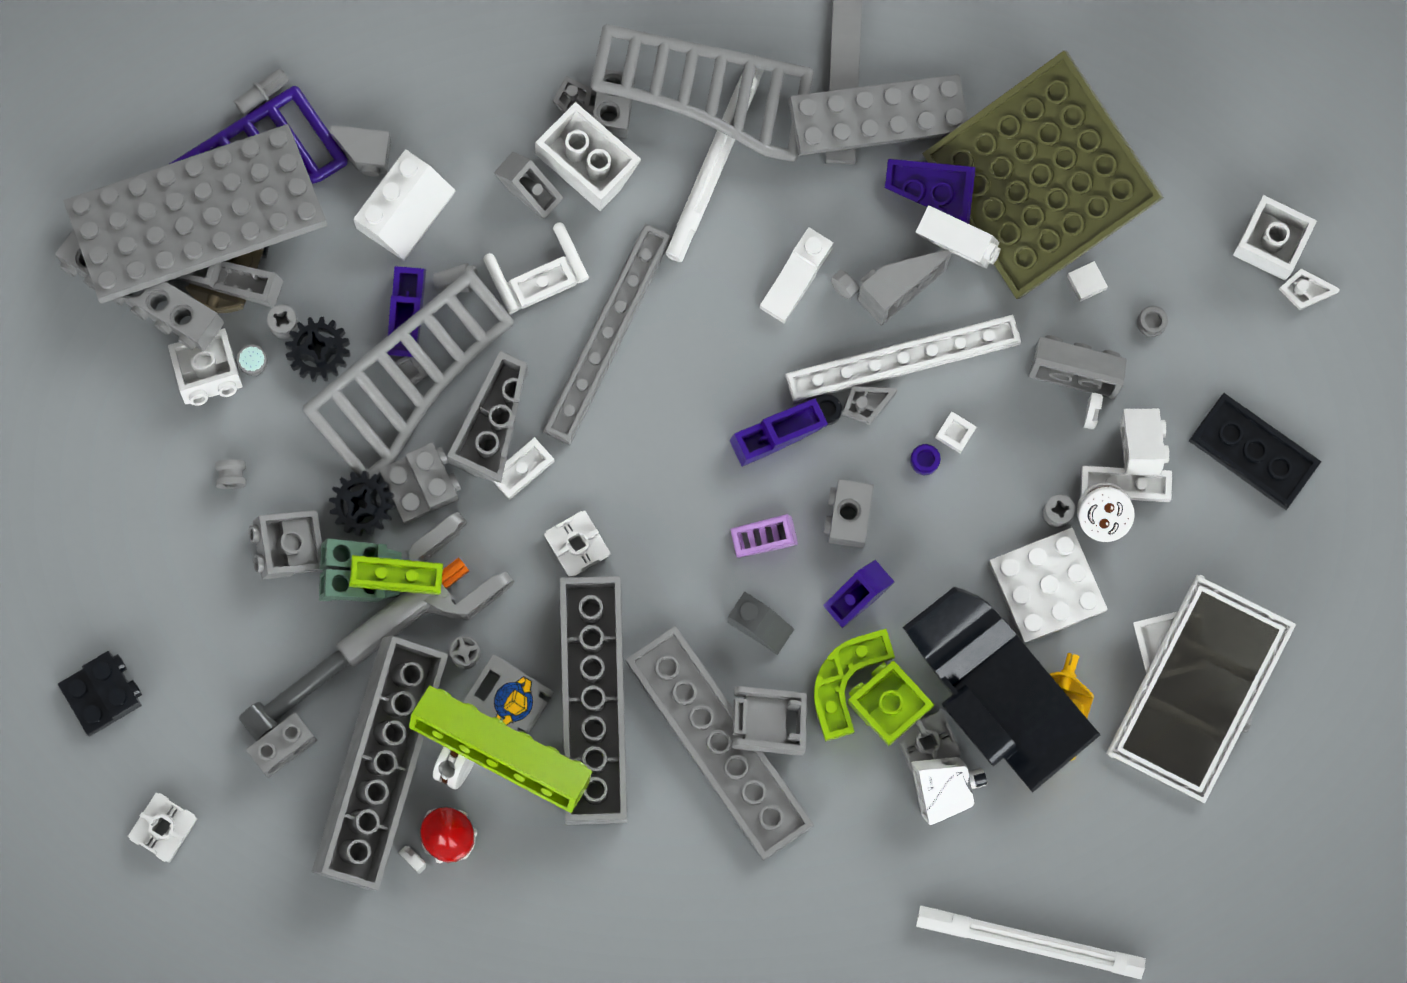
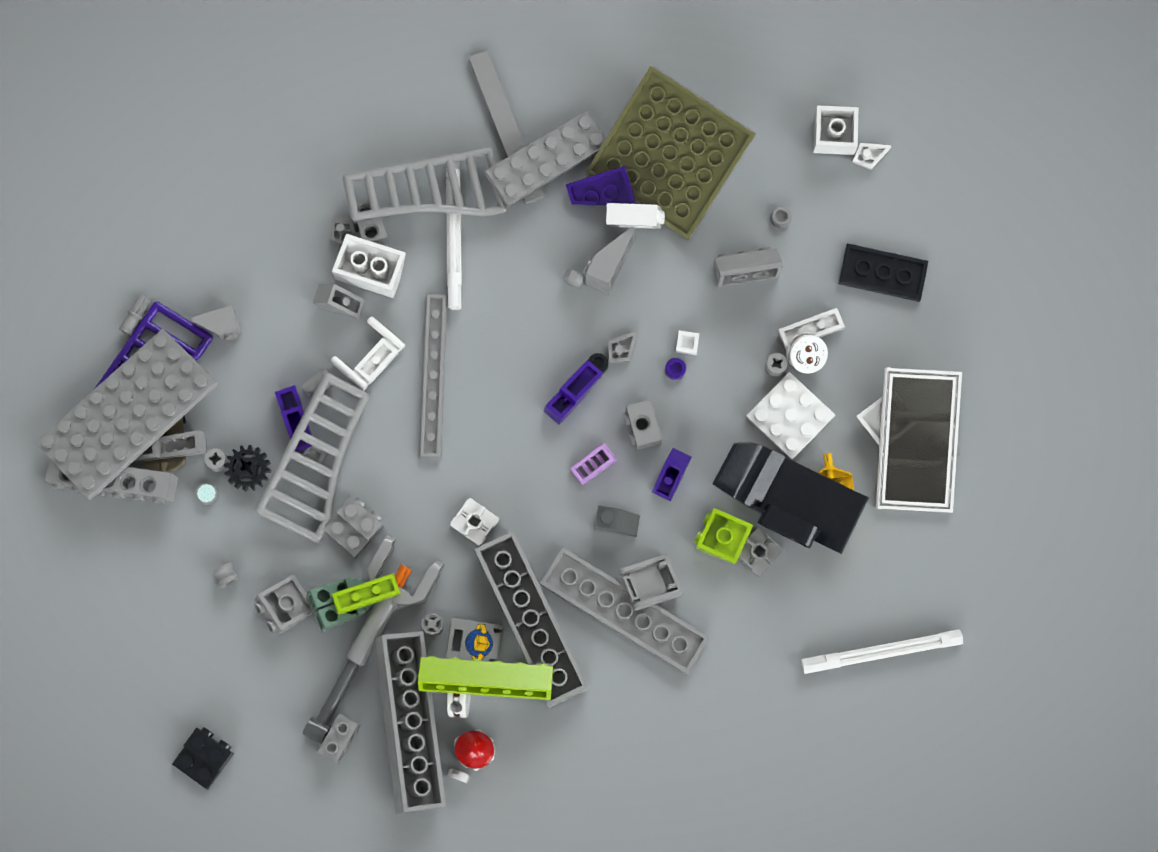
camera: 20 degrees left, 0 degrees up
(170, 842) = (273, 825): white piece -> none
(207, 372) = (180, 515): white plate -> none
(356, 513) = (321, 546): black gear -> none
(404, 205) = (262, 349): white slope -> none
(488, 428) = (383, 469): light grey wedge -> none
(524, 468) = (416, 488): white plate -> none
(797, 275) = (540, 285): white slope -> none
(835, 673) = (680, 530): lime plate -> none
(903, 358) = (632, 310): white tile -> none
(945, 787) = (783, 575): white torso -> none
(1087, 281) = (728, 209): white tile -> none
(1093, 406) = (768, 286): white tile -> none
(1143, 441) = (810, 296): white brick -> none

